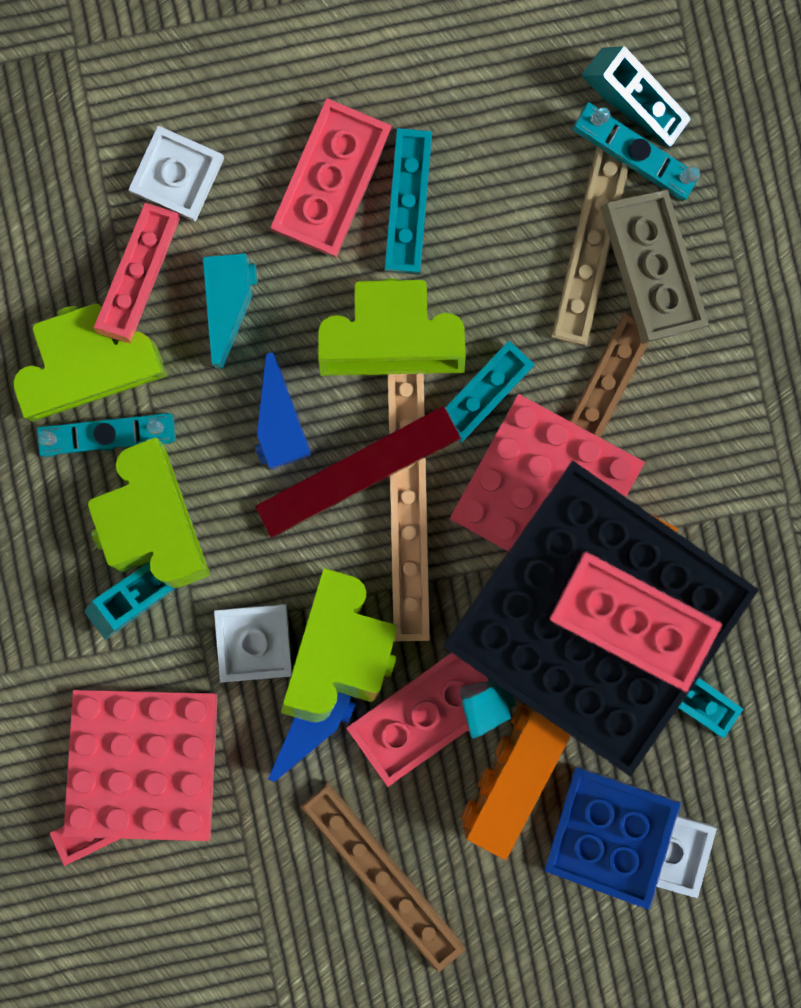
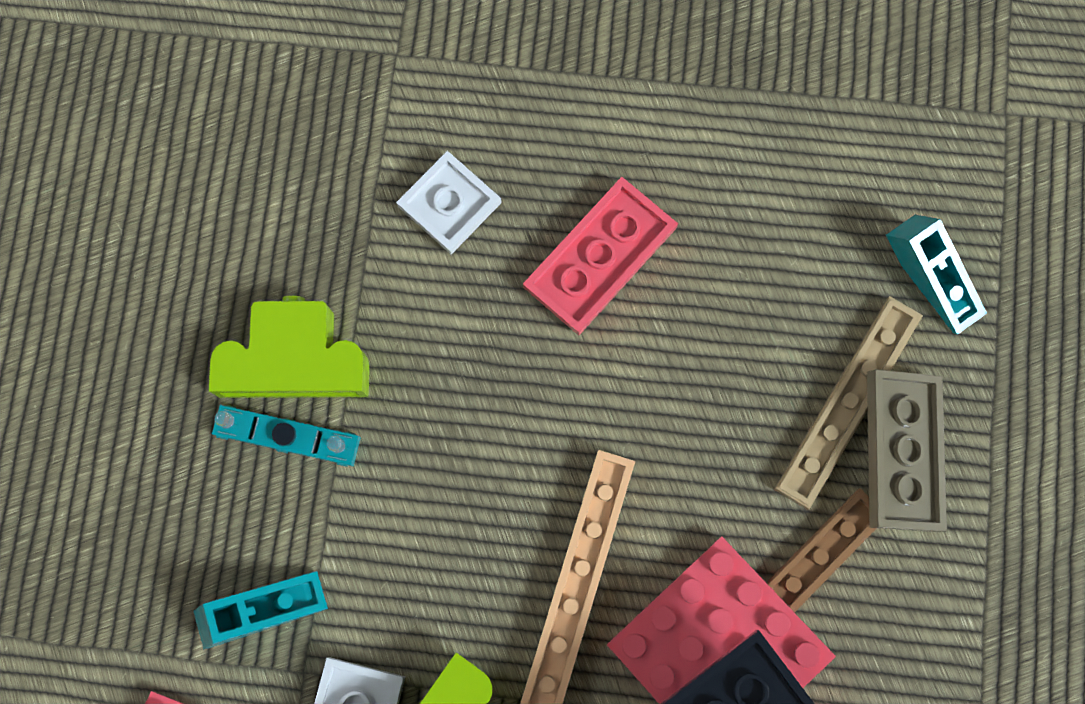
camera: 25 degrees right, 10 degrees down
(137, 273) = (374, 285): coral plate -> none
(148, 519) = (294, 538): lime brick -> none
(227, 298) = (455, 340): teal slope -> none
(278, 425) = (462, 487): blue slope -> none
(358, 472) = (527, 561): dark red tile -> none
(391, 334) = (609, 430): lime brick -> none
(408, 201) = (670, 303): teal plate -> none
(488, 388) = (687, 522): teal plate -> none
(635, 151) = (920, 328): teal piece -> none

